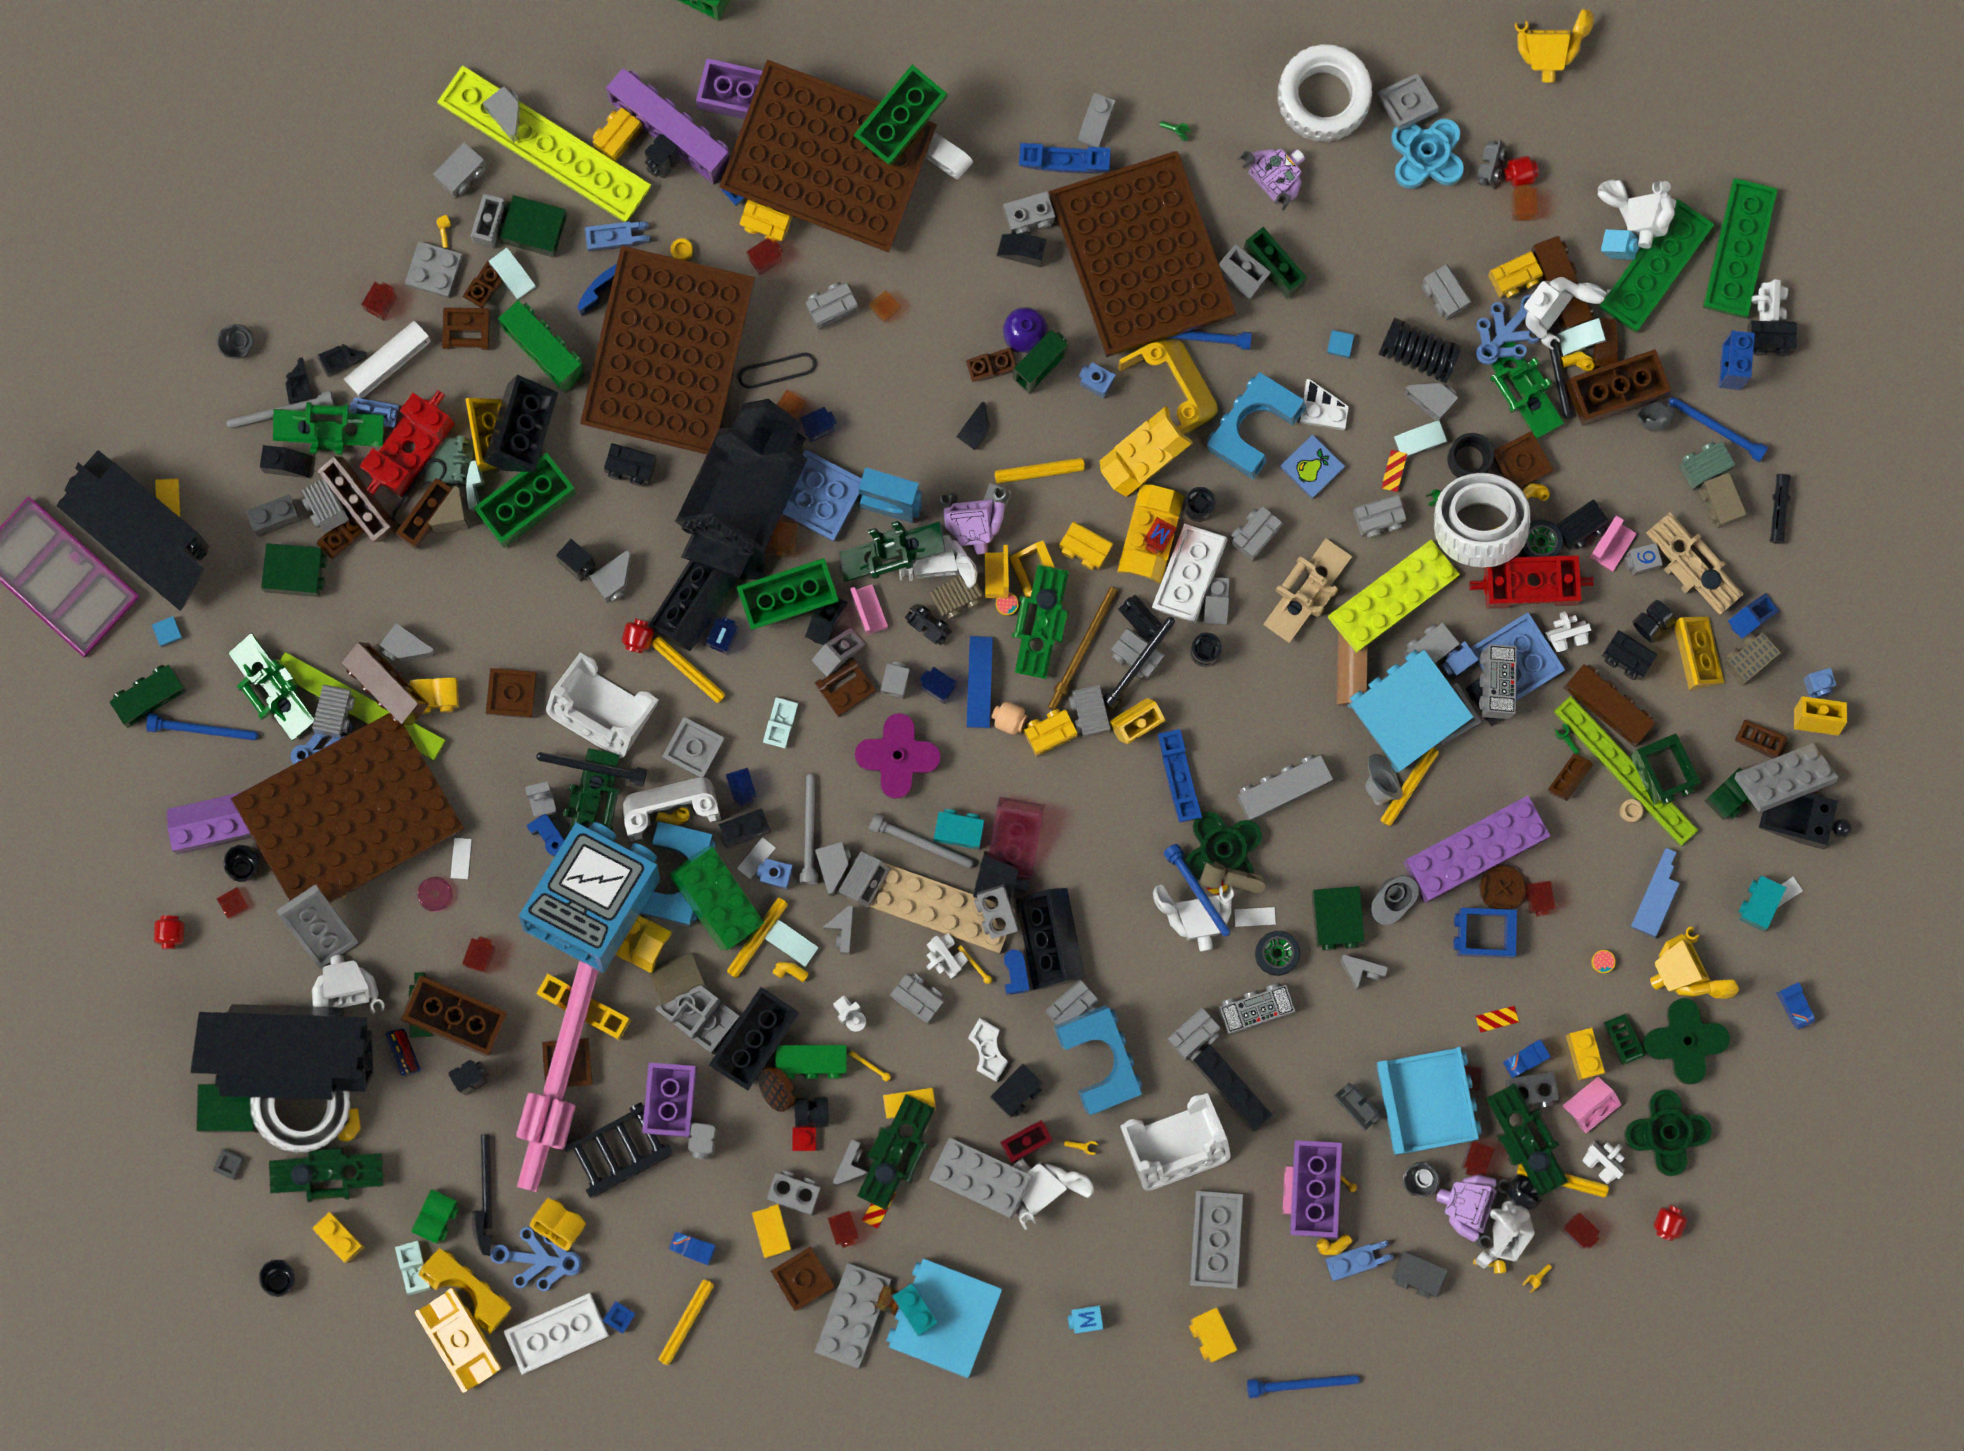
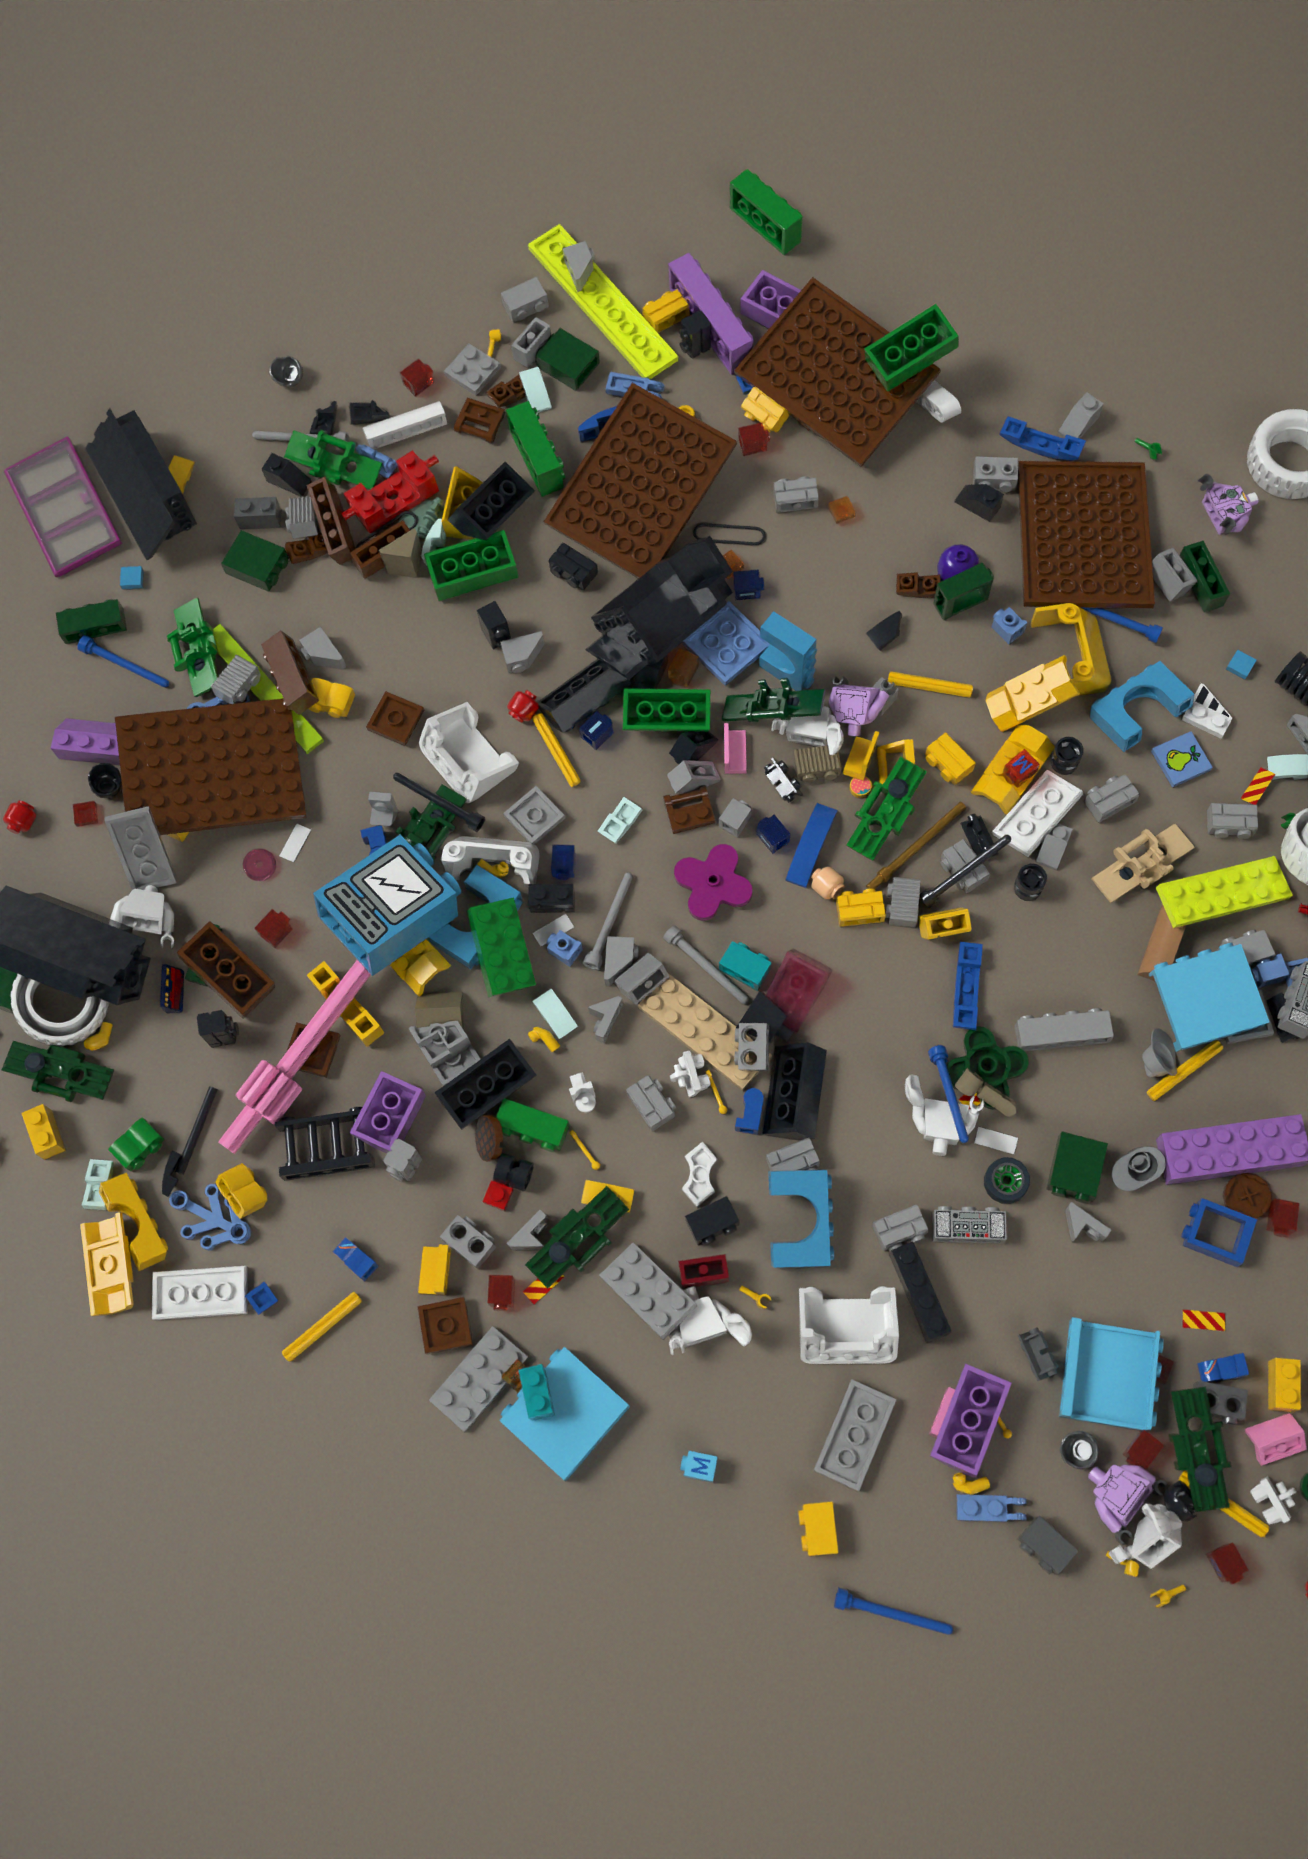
camera: 30 degrees right, 10 degrees down
(757, 938) = (525, 999): yellow axle -> none

